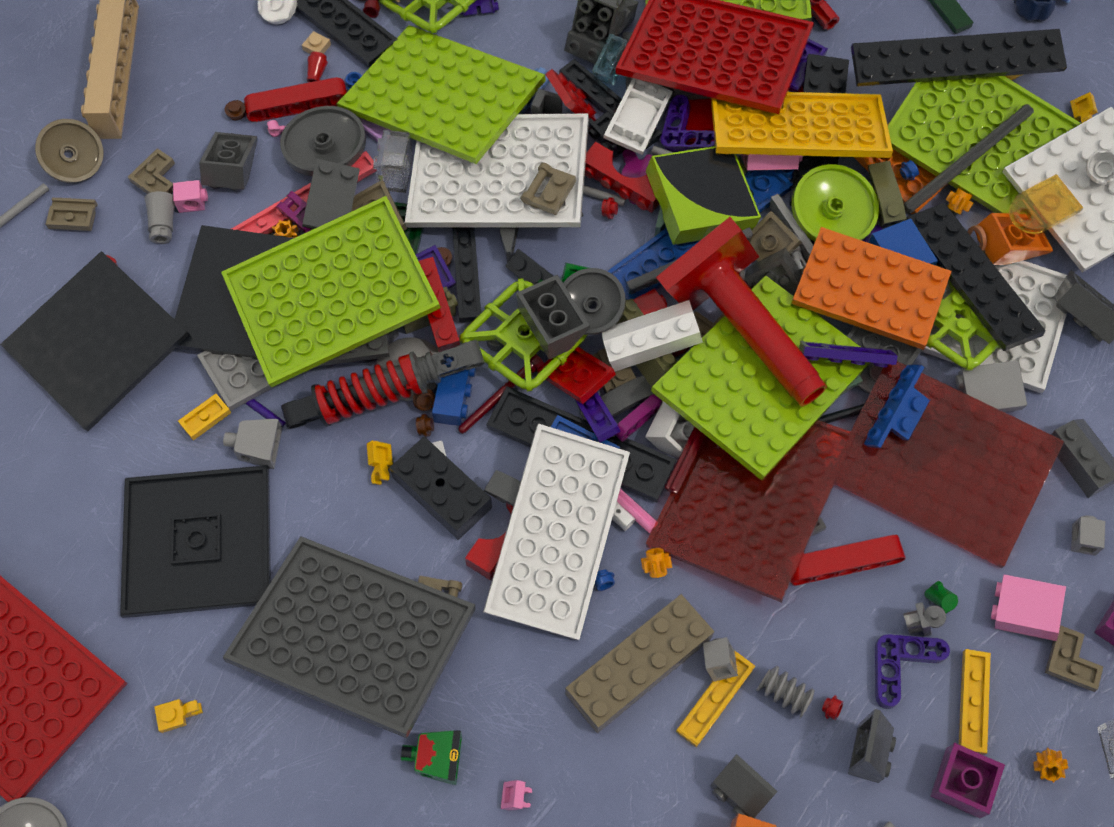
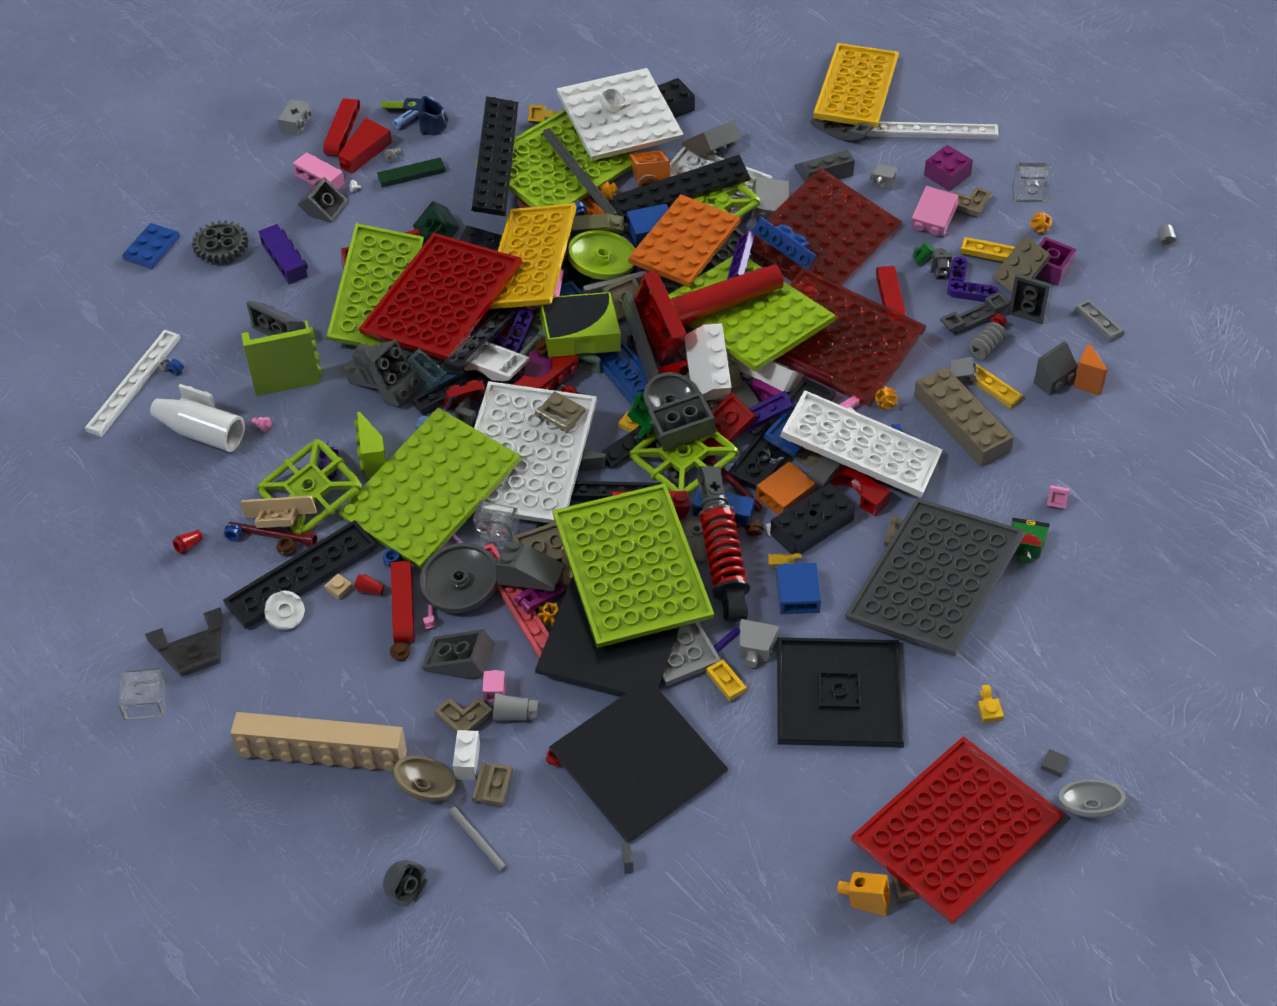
camera: 80 degrees left, 15 degrees down
(94, 796) = (1054, 763): none -> dark grey tile
(102, 184) = (466, 755): none -> white brick
(337, 480) = (798, 588): none -> blue brick
(485, 451) = (784, 488): none -> orange brick
(494, 28) = (371, 446): none -> lime slope
(657, 98) = (480, 339): none -> black plate
(837, 674) = (976, 316): none -> dark grey slope
(853, 31) = (436, 220): none -> clear green slope
(939, 734) = (1025, 259): none -> dark tan plate
(1045, 206) = (632, 138): clear yellow tile -> none

